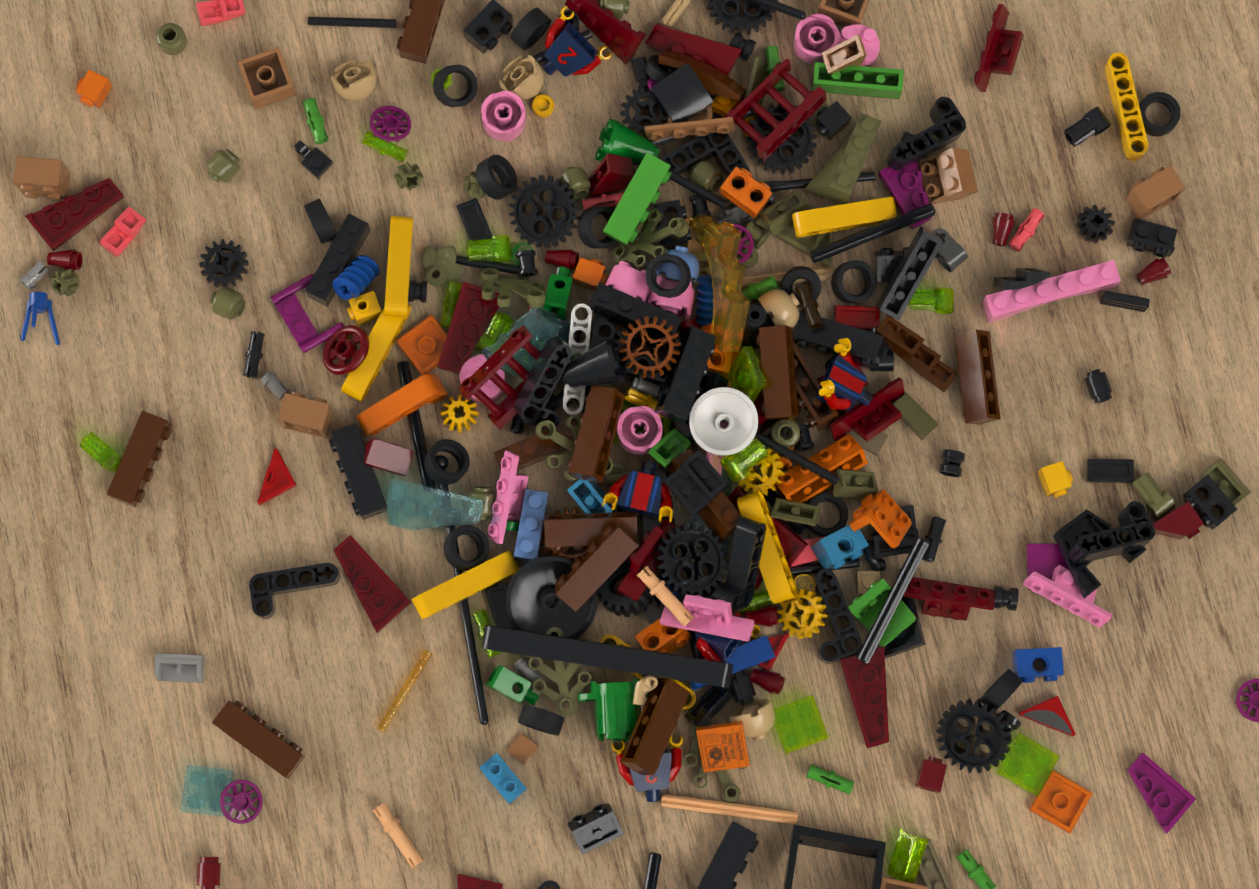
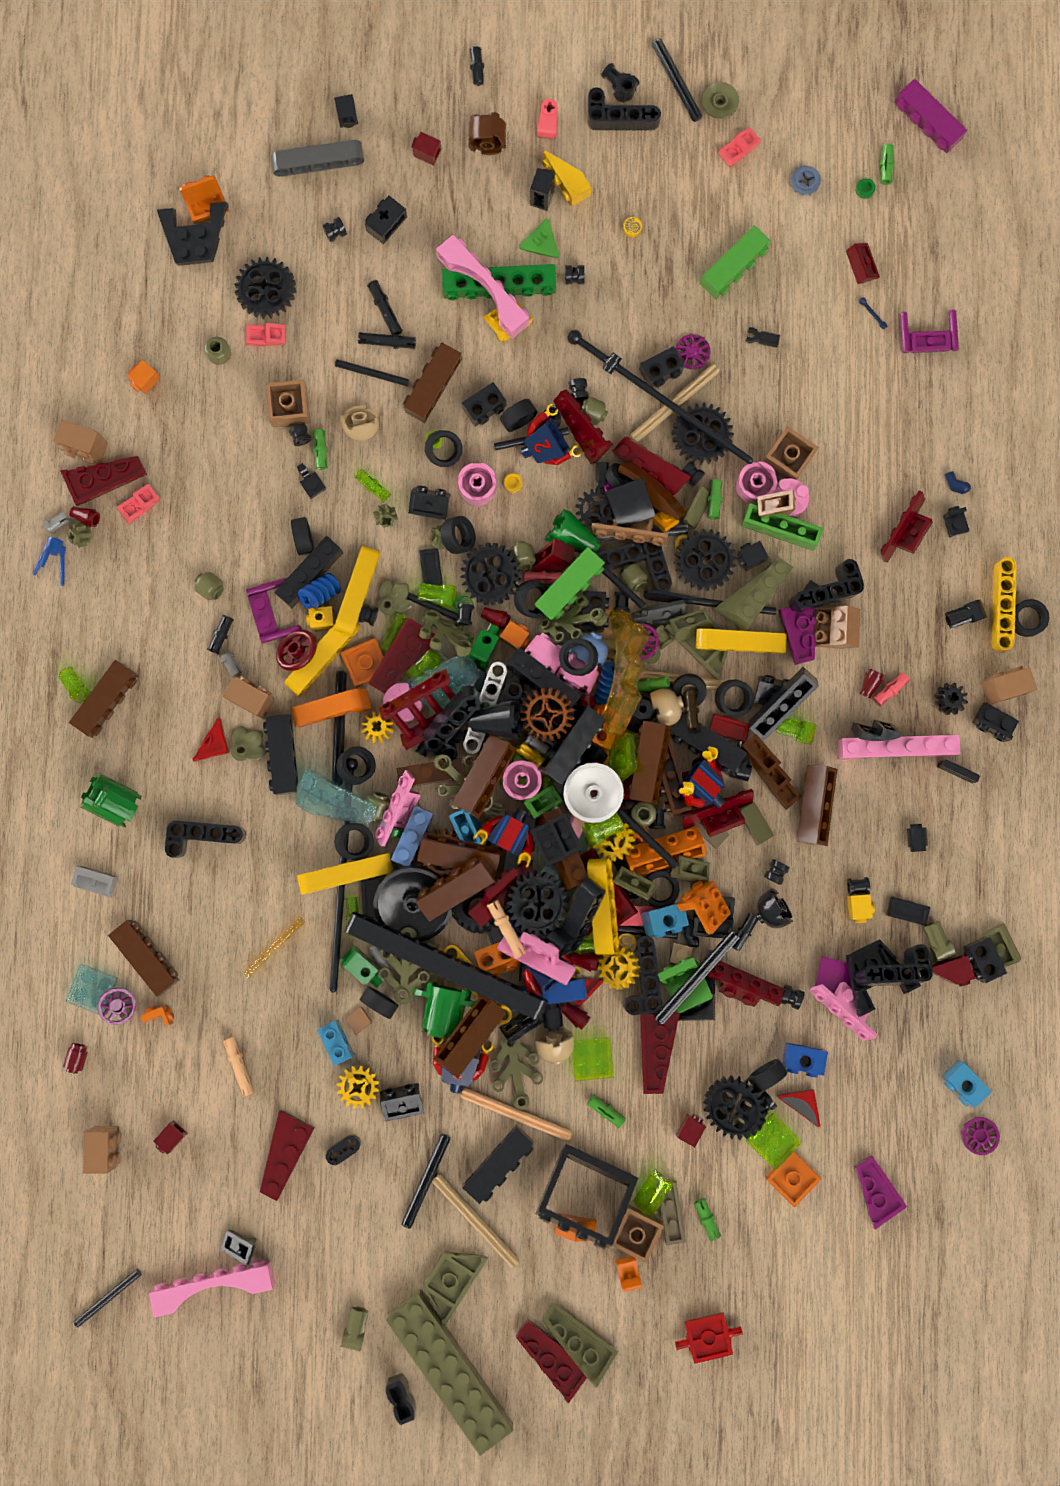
camera: 15 degrees right, 5 degrees up
(177, 568) = (110, 800): none -> green container
(223, 165) = (234, 468): olive head -> none
(231, 260) = (205, 553): black gear -> none
(286, 798) = (154, 1012): none -> orange bracket
(288, 110) = (300, 435): none -> black wheel
(317, 467) = (249, 742): none -> olive plate
(375, 590) = (269, 853): dark red wing -> none
(387, 456) = (308, 749): slope -> none
(390, 123) = (381, 467): magenta wheel -> none
(454, 150) = (429, 502): none -> black bracket
(523, 77) = (501, 455): tan cylinder -> none
(528, 812) = (363, 1094): none -> yellow gear
(643, 687) = (468, 1000): tan arm -> none
(723, 746) = (523, 1064): orange tile -> none
(741, 196) = (658, 603): orange brick -> none
(781, 129) = (707, 553): dark red fence -> none
(872, 233) = (762, 660): black axle -> none
(950, 253) = (823, 694): dark grey piece -> none
(959, 506) = (773, 911): none -> black cylinder
(1047, 456) = (858, 886): none -> black bush
(1049, 28) = (956, 521): none -> black bracket
(1154, 271) = (992, 751): dark red cone -> none
(1239, 646) = (974, 1093): none -> dark azure brick

